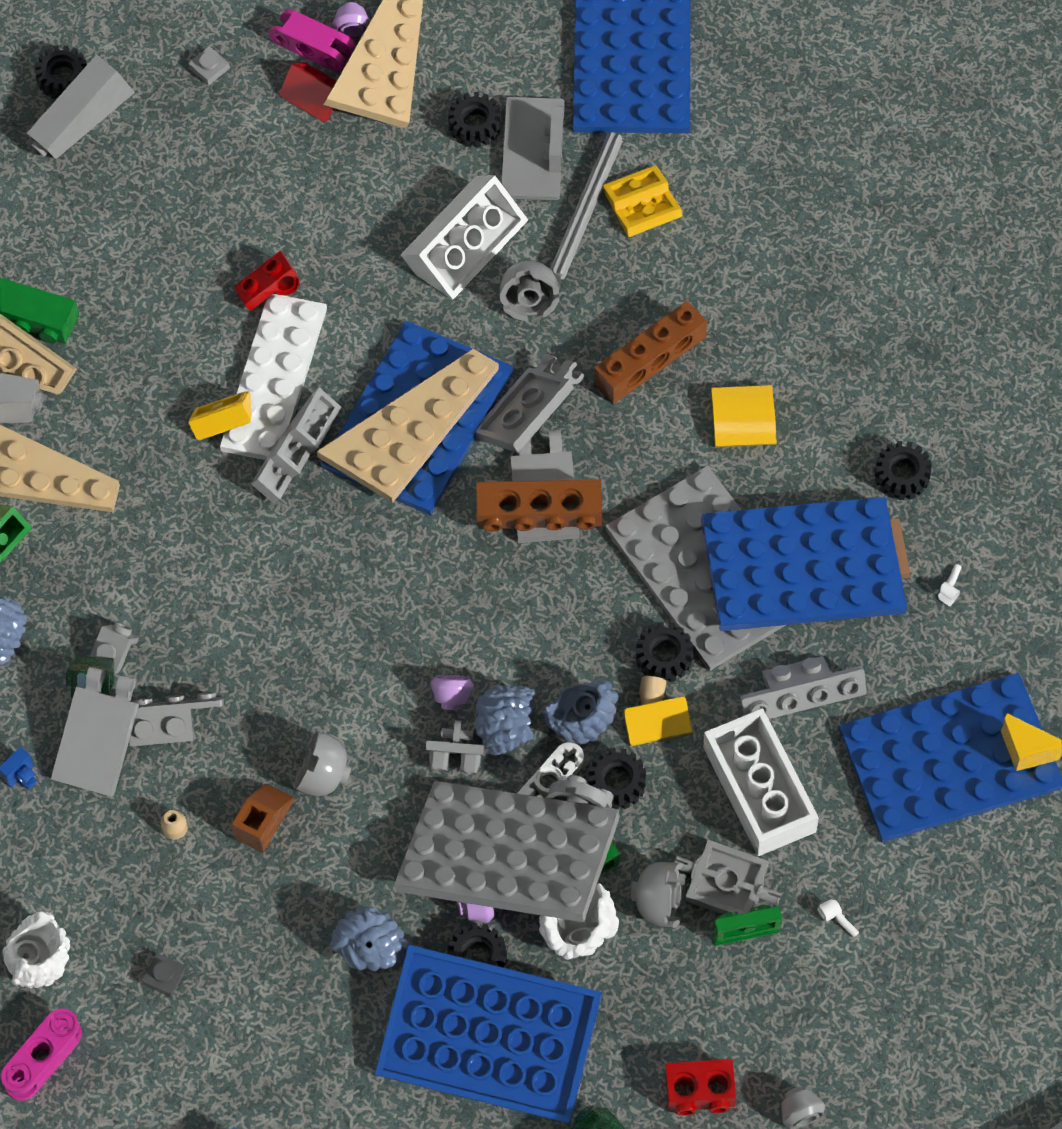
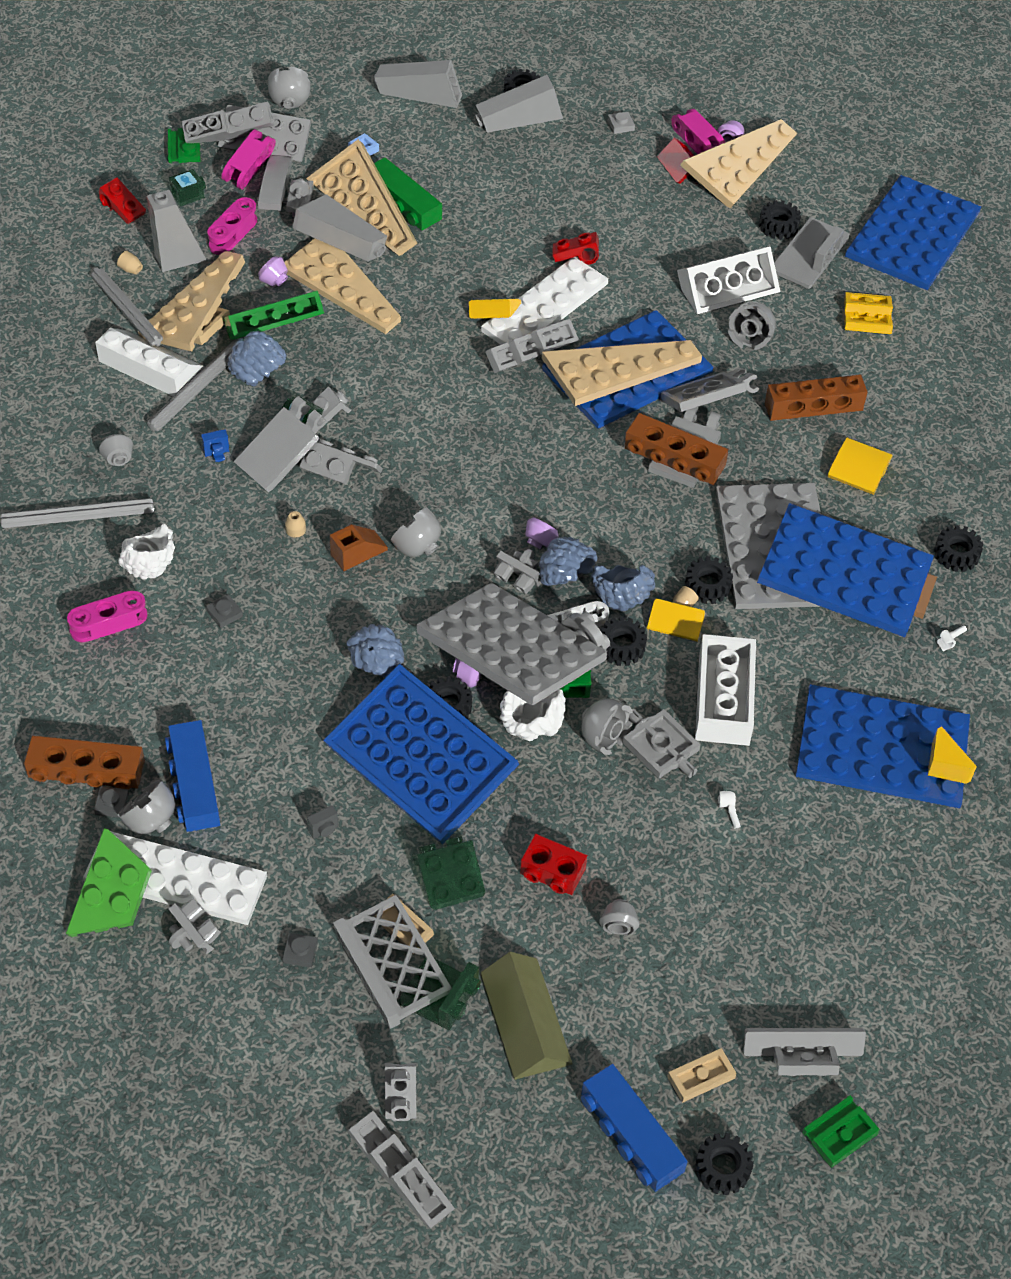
camera: 25 degrees right, 10 degrees down
(586, 205) = (825, 299): light grey axle -> none
(737, 927) = (656, 776): green plate -> none
(803, 687) = (799, 649): light grey bracket -> none

